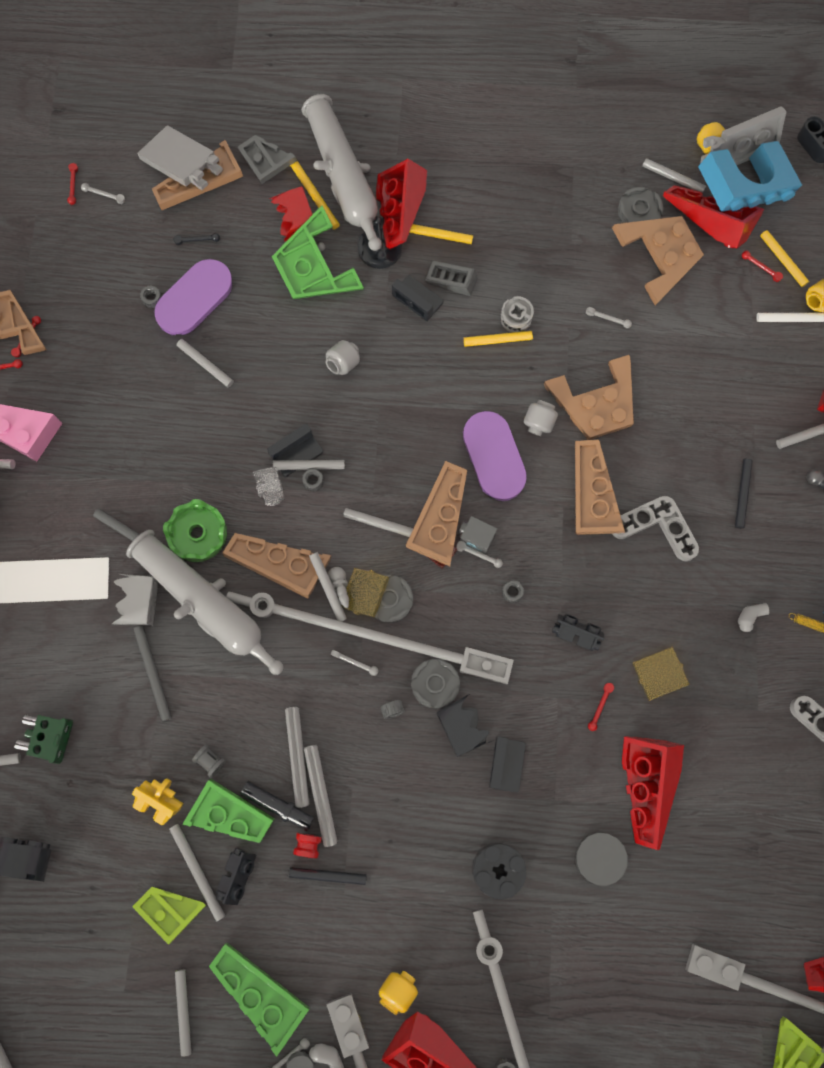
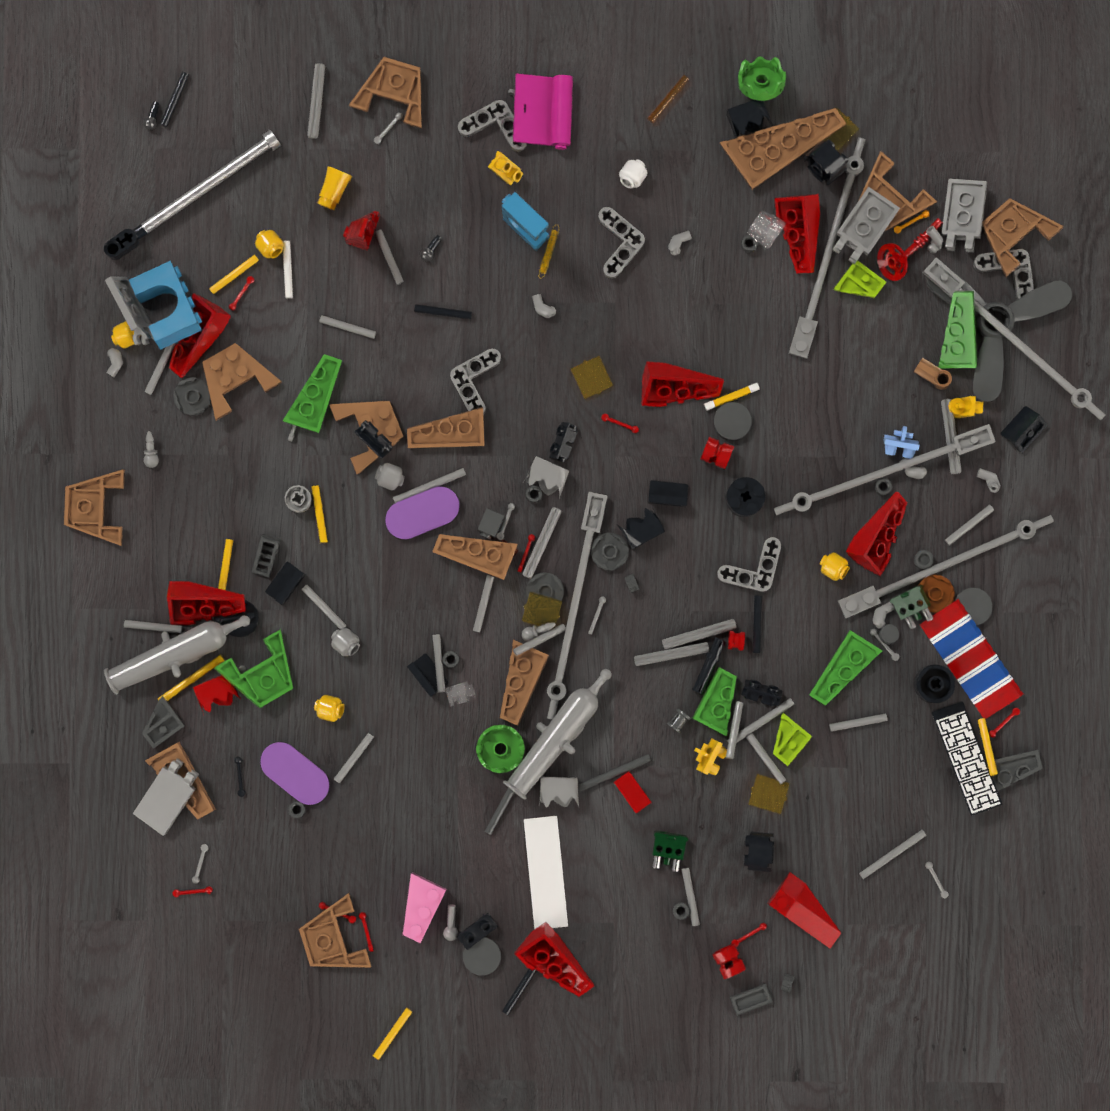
camera: 90 degrees left, 10 degrees up
(101, 877) = (768, 794): none -> clear yellow piece
(124, 694) = (632, 792): none -> red tile
(147, 877) = (765, 757): none -> light grey bar
(188, 835) = (734, 730): none -> light grey bar
(265, 336) = (329, 708): none -> yellow head
(376, 158) = (152, 626): none -> light grey bar
(386, 338) = (324, 607): none -> light grey bar
(391, 876) = (754, 576): none -> light grey beam
(451, 598) = (542, 542): none -> light grey axle
(456, 585) = (531, 538): none -> red hinge
(516, 93) = (86, 506): none -> medium nougat wing
(530, 473) = (435, 483): none -> light grey bar
(535, 612) = (548, 476): none -> light grey piece
(559, 834) = (717, 452): none -> red wheel
(568, 162) = (151, 459): none -> light grey bar
(586, 397) = (378, 444): none -> black hinge
(634, 860) = (731, 396): none -> yellow bar
(641, 339) = (313, 399): none -> bright green wing
(682, 130) = (116, 361): none -> light grey arm
(723, 381) = (348, 327): none -> light grey bar

